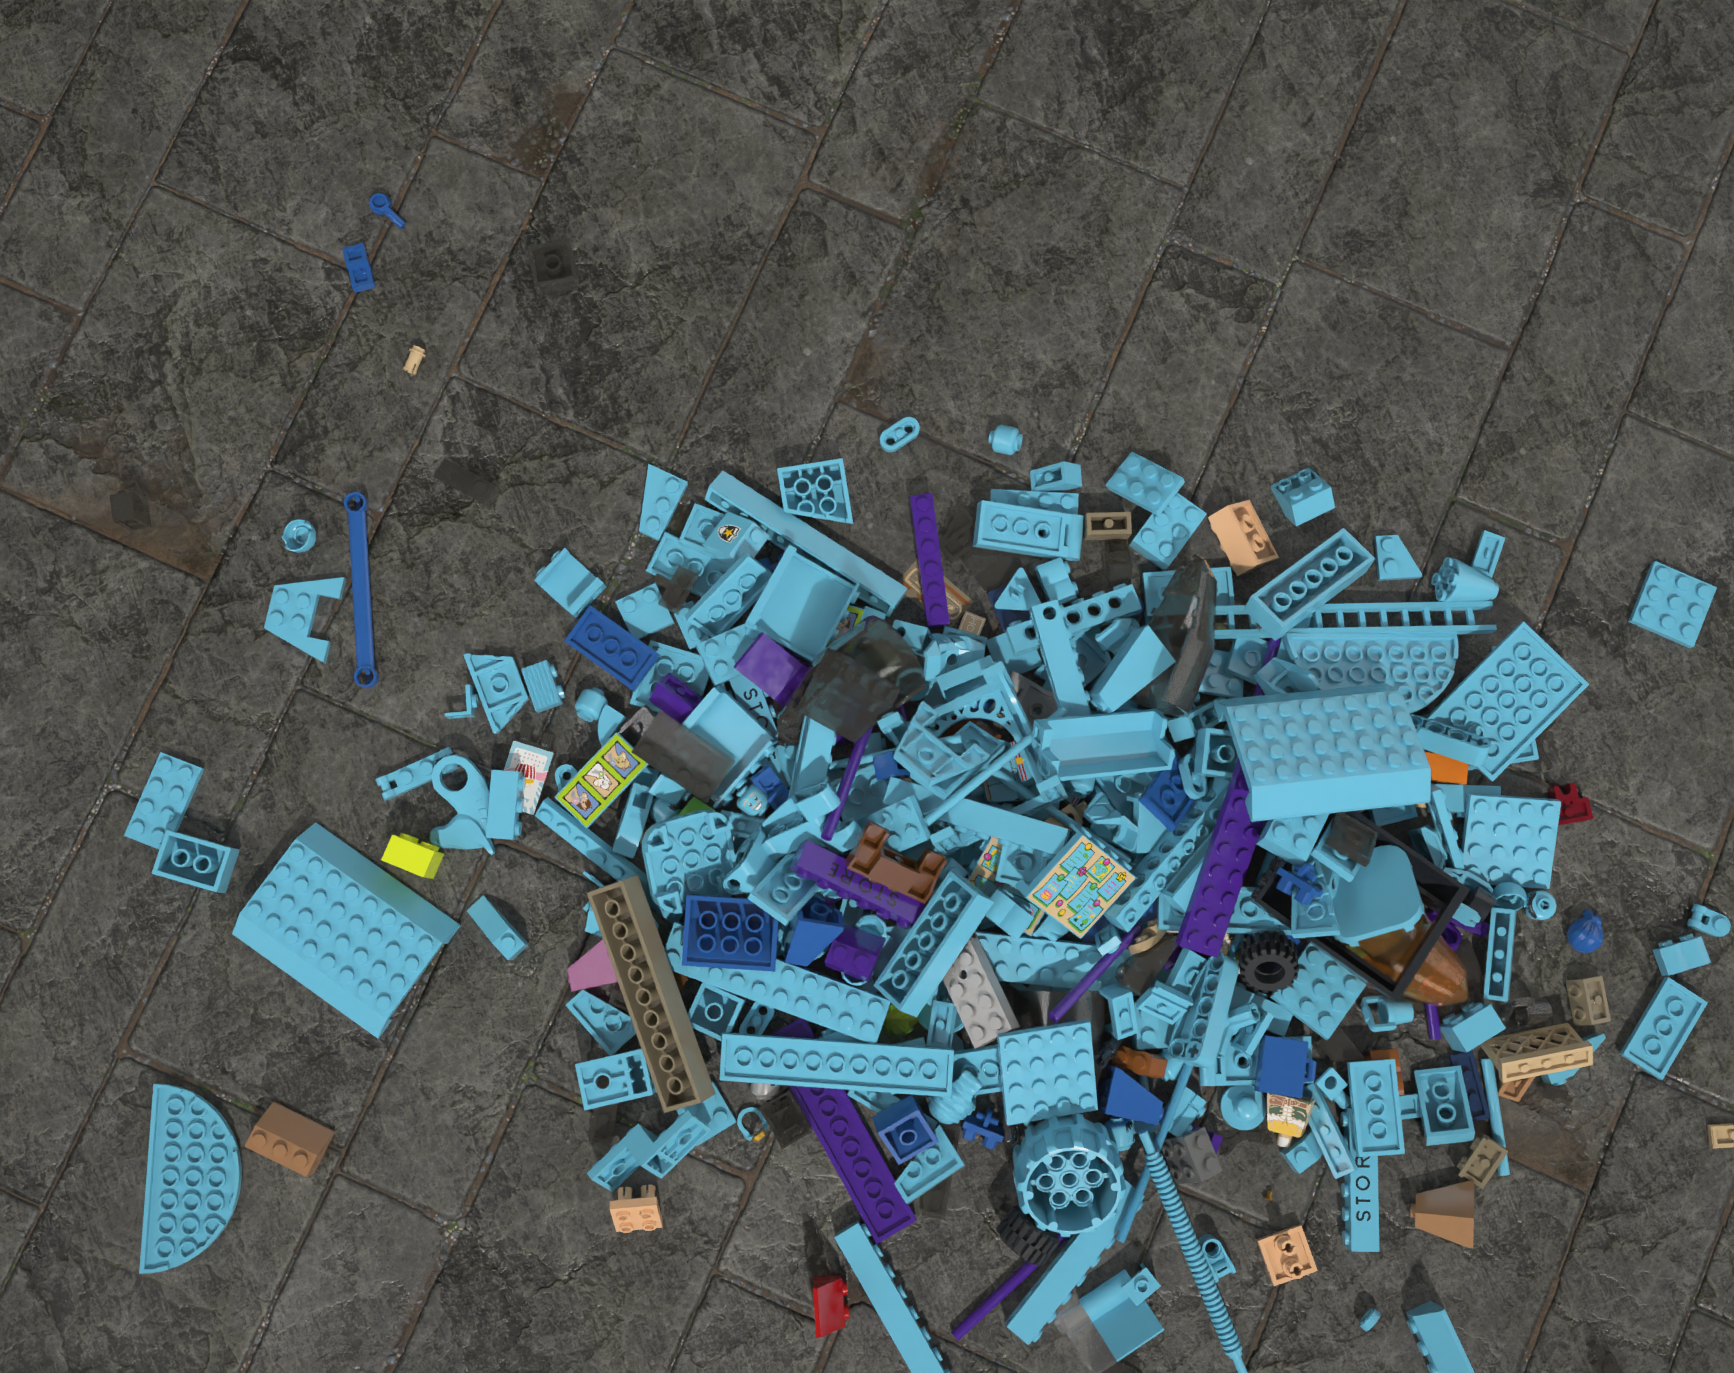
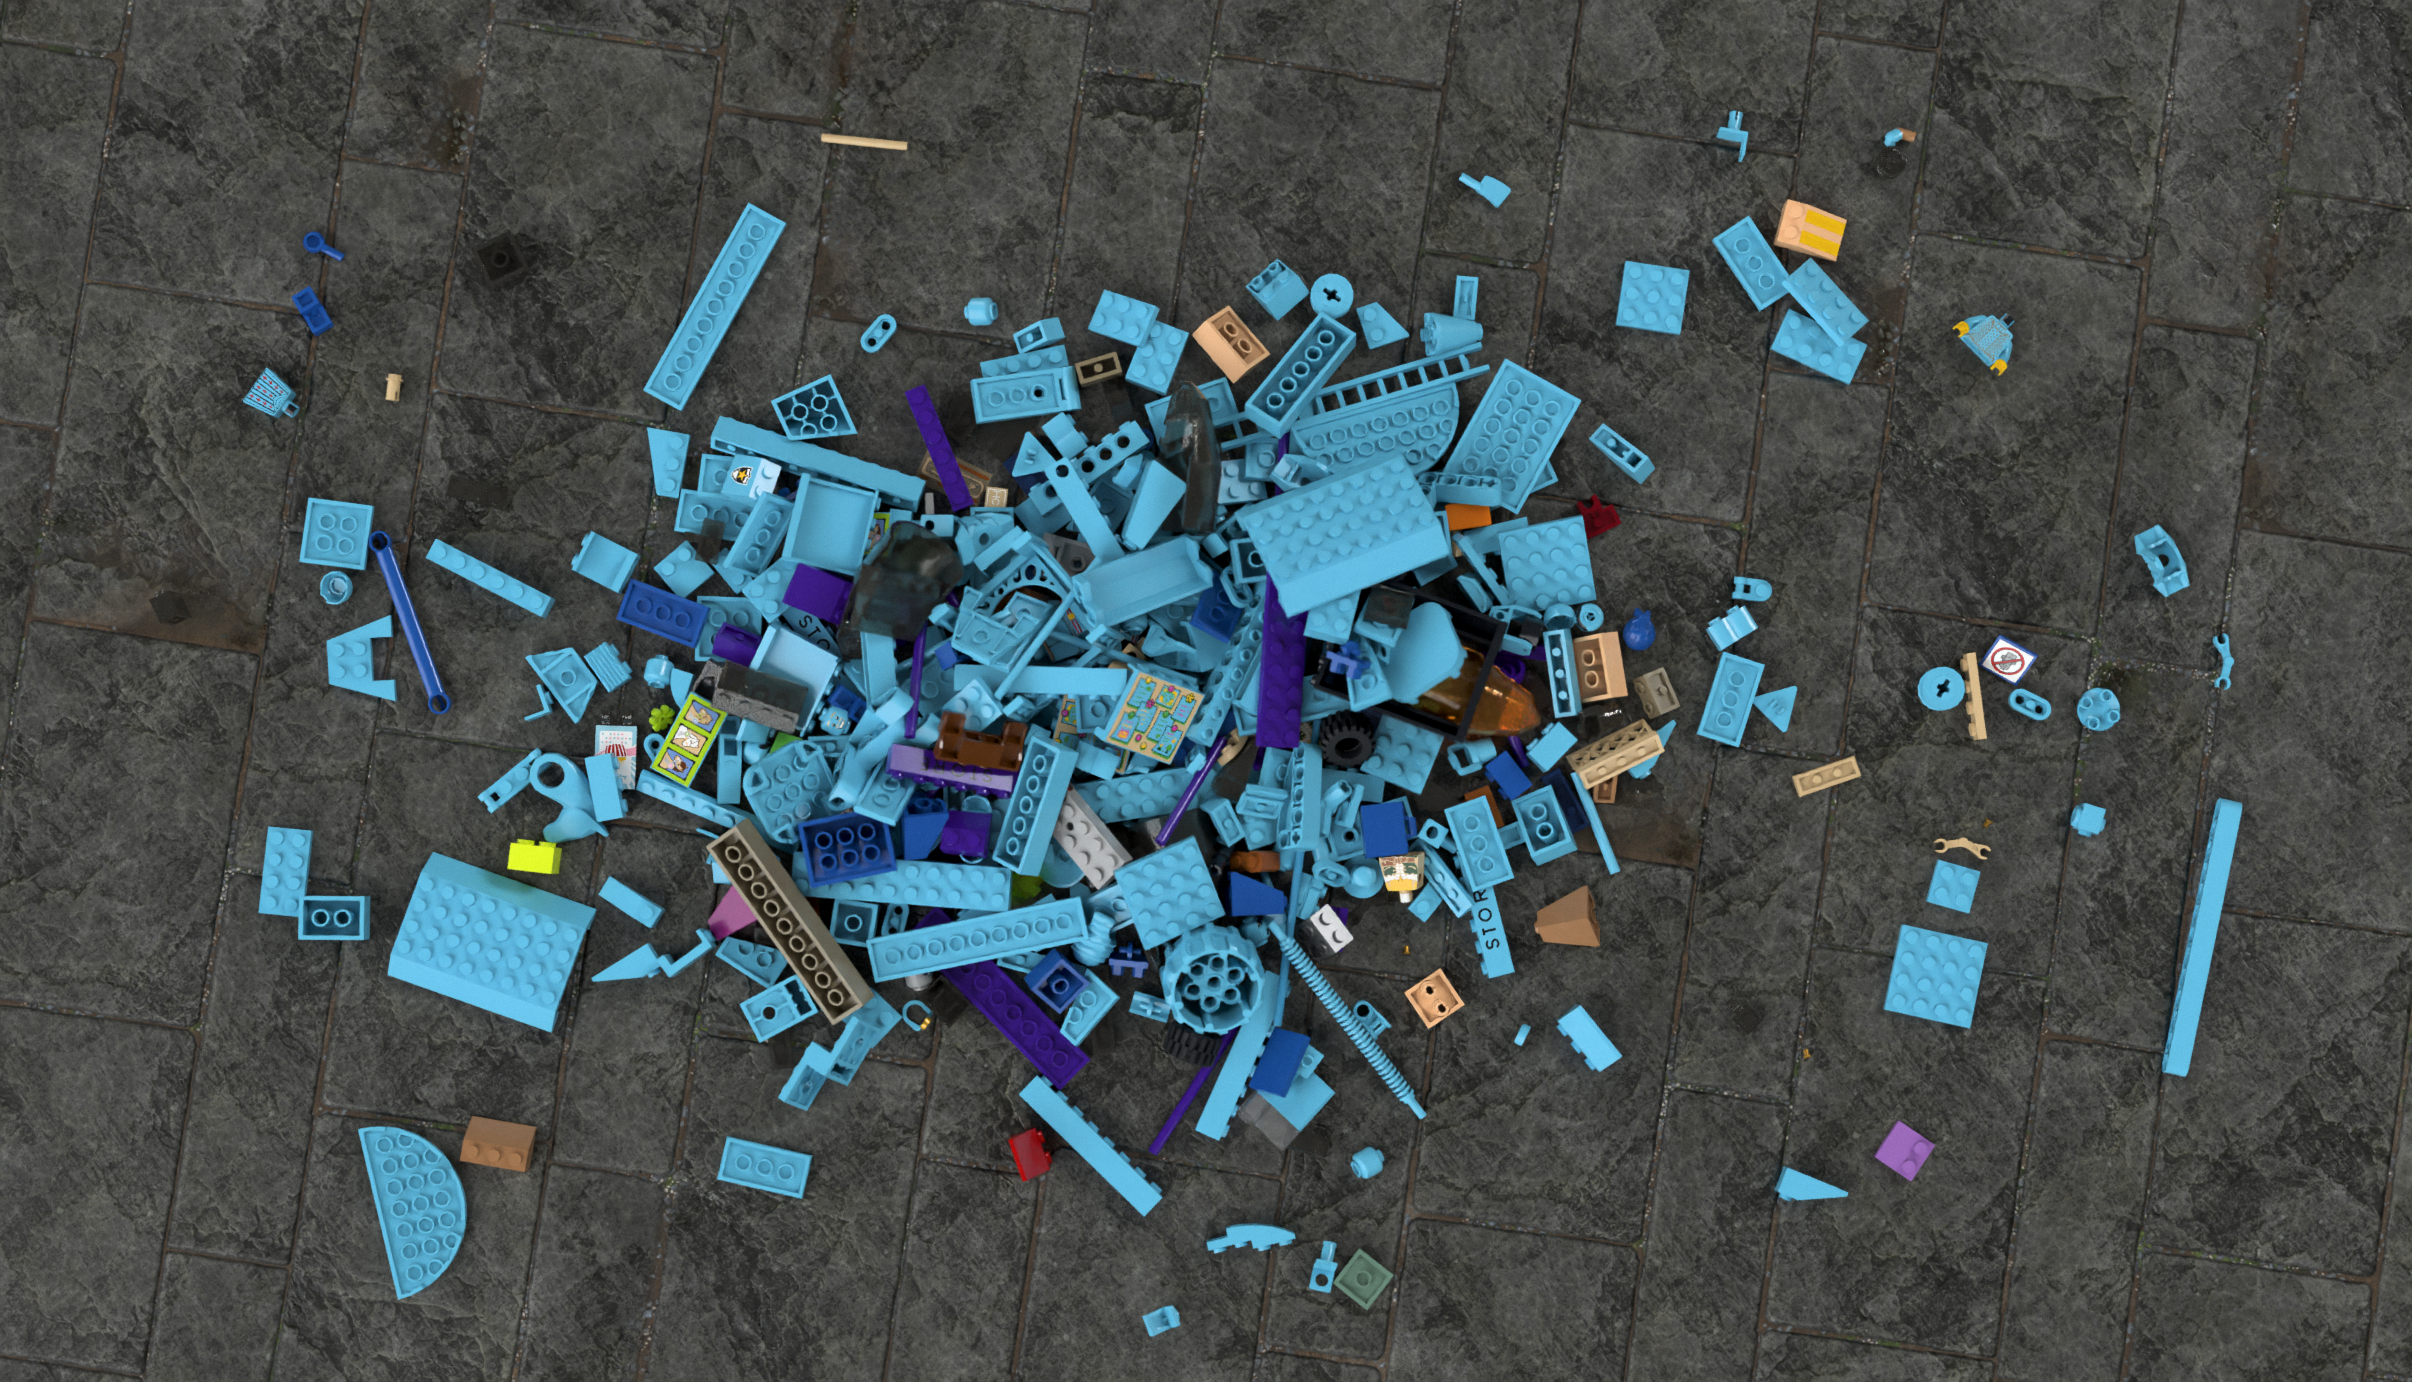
camera: 15 degrees left, 5 degrees up
(294, 336) = (272, 395): none -> medium azure torso
(316, 484) = (336, 534): none -> medium azure plate
(452, 568) = (490, 578): none -> medium azure brick
(485, 993) = (635, 965): none -> medium azure slope
(518, 1007) = (674, 968): none -> medium azure panel
(553, 1239) = (764, 1167): none -> medium azure tile
(580, 751) = (661, 717): none -> lime plant
(637, 1213) = (832, 1122): light nougat plate -> none
(746, 367) = (715, 307): none -> medium azure plate
(905, 611) = (930, 504): none -> light grey tile
(935, 250) = (861, 141): none -> tan bar
(941, 1024) = (1065, 877): medium azure plate -> none
(993, 1182) = (1150, 1006): none -> medium azure hips
(1112, 1280) = (1279, 1062): none -> blue tile
(1215, 1095) = (1331, 873): none -> medium azure plate
(1357, 505) = (1330, 284): none -> medium azure piece
(1417, 1044) = (1507, 776): none -> blue brick
(1482, 1160) = (1590, 865): dark tan bracket -> none
(1534, 455) = (1489, 187): none -> medium azure piece
(1537, 958) = (1599, 667): none -> light nougat slope
(1610, 749) = (1622, 453): none -> medium azure slope
(1709, 1048) = (1777, 706): none -> medium azure piece

